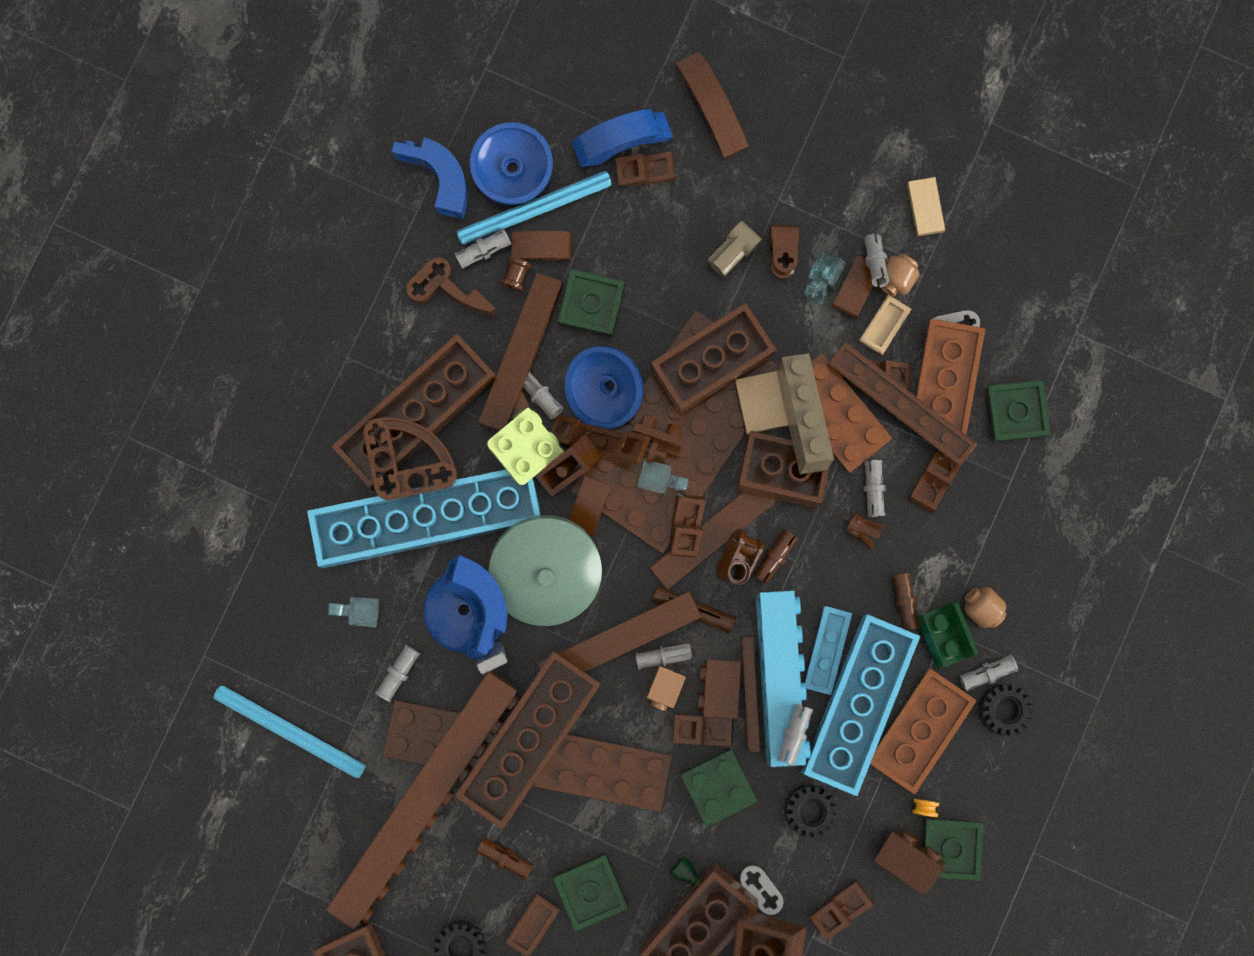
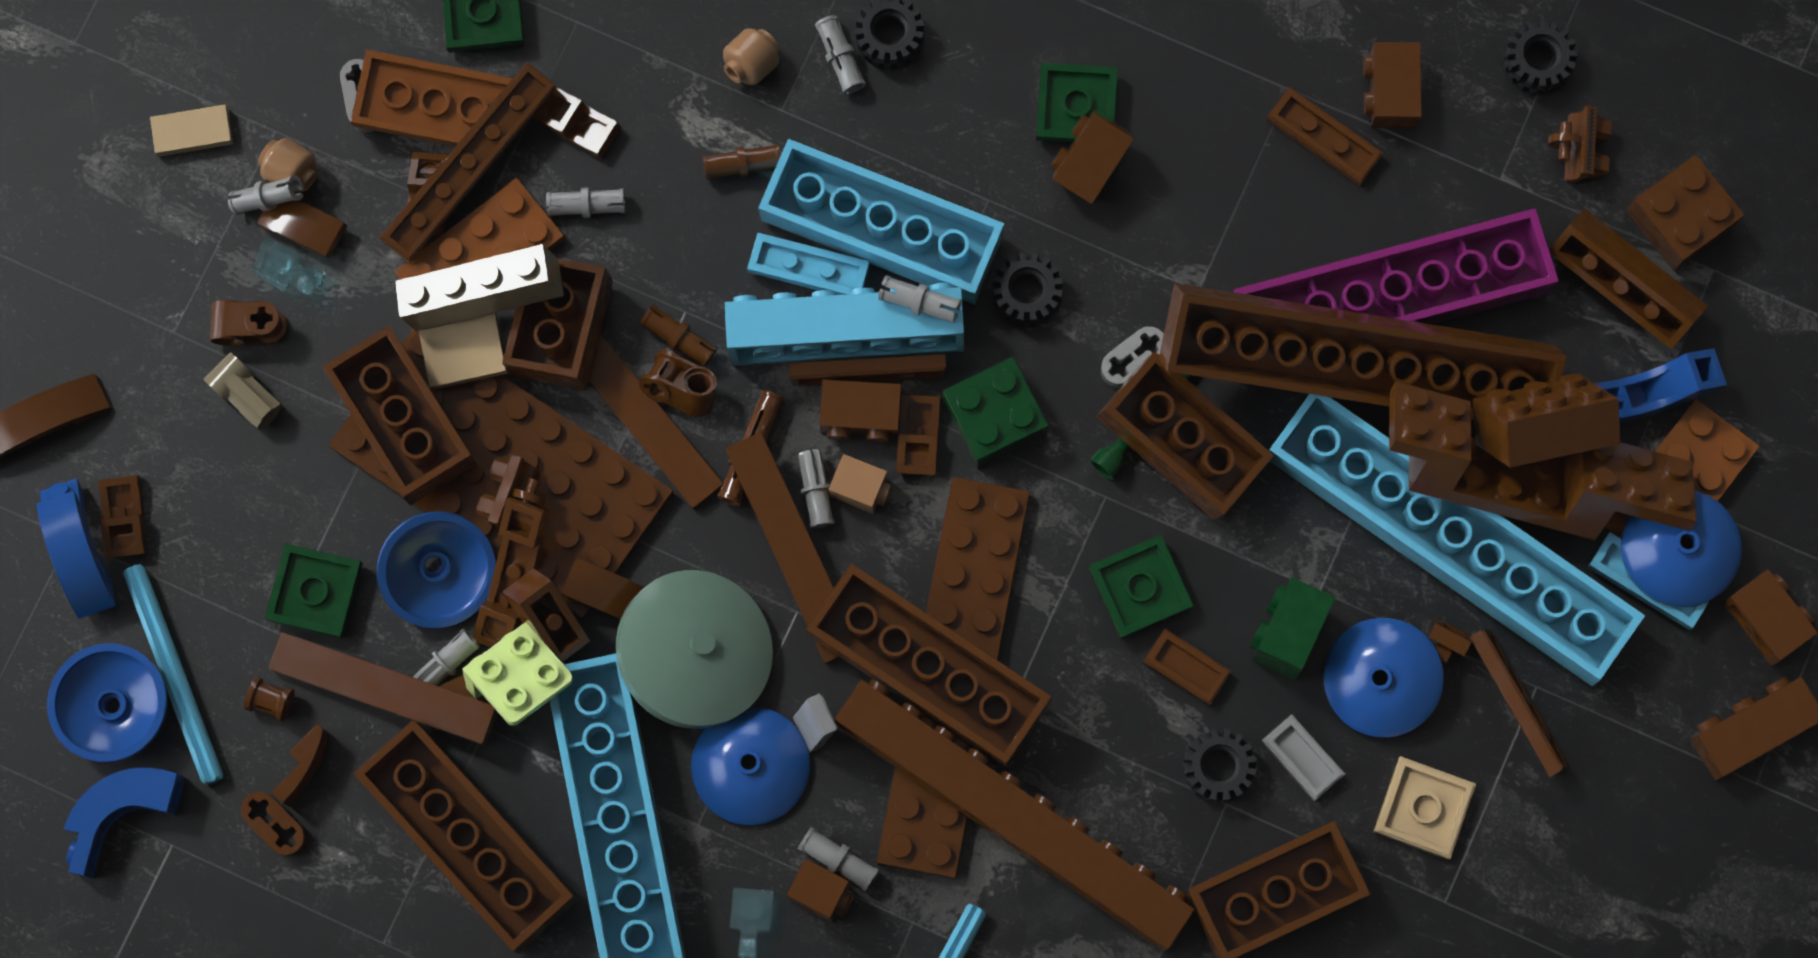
camera: 80 degrees left, 5 degrees down
(370, 662) = (821, 891): none -> reddish brown brick
(401, 478) = (559, 847): reddish brown beam -> none
(483, 248) = (230, 745): light grey pin -> none
(485, 599) = (733, 730): blue arch -> none
(504, 858) = (1095, 705): reddish brown pin -> none
(541, 245) = (228, 662): reddish brown slope -> none
(657, 478) = (565, 494): clear light blue plate -> none
(686, 524) = (636, 456): reddish brown slope -> none
(841, 909) = (1159, 250): reddish brown slope -> none
(860, 526) = (635, 224): reddish brown piece -> none
(884, 325) = (357, 187): tan tile -> none
(921, 731) = (917, 141): dark orange plate -> none
(925, 807) = (1021, 138): light orange bush -> none
(947, 635) = (787, 106): dark green bracket -> none

